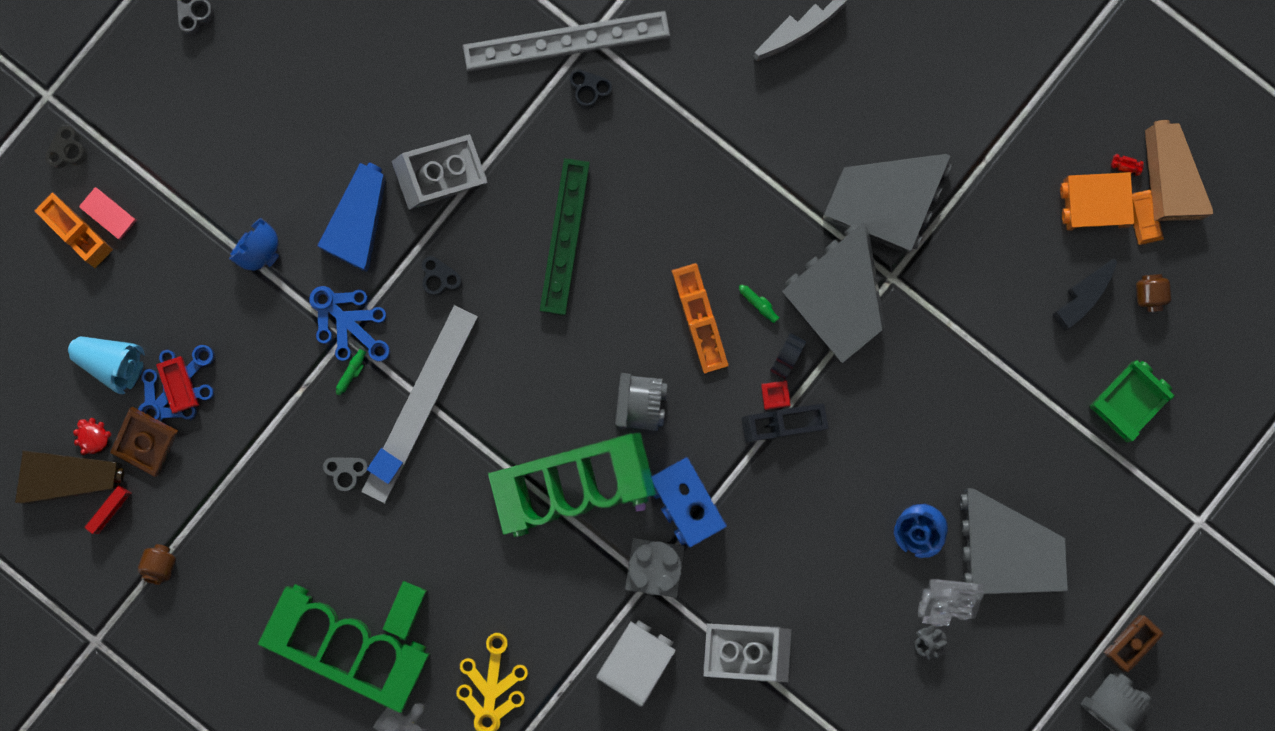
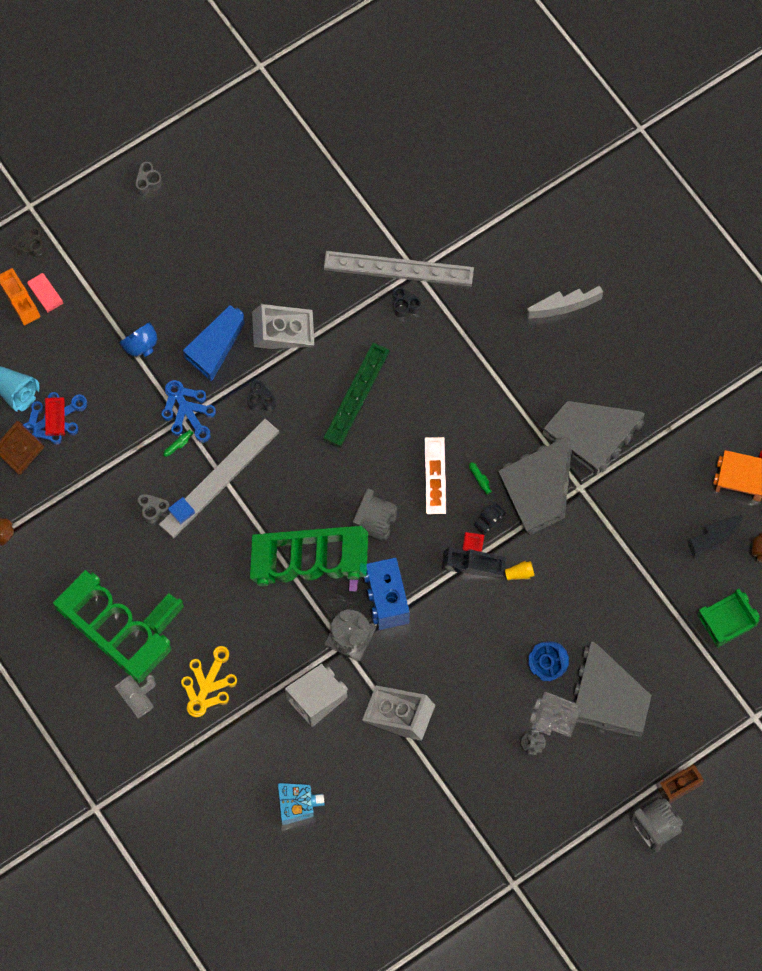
camera: 15 degrees right, 15 degrees down
(849, 416) = (520, 571): none -> yellow cone

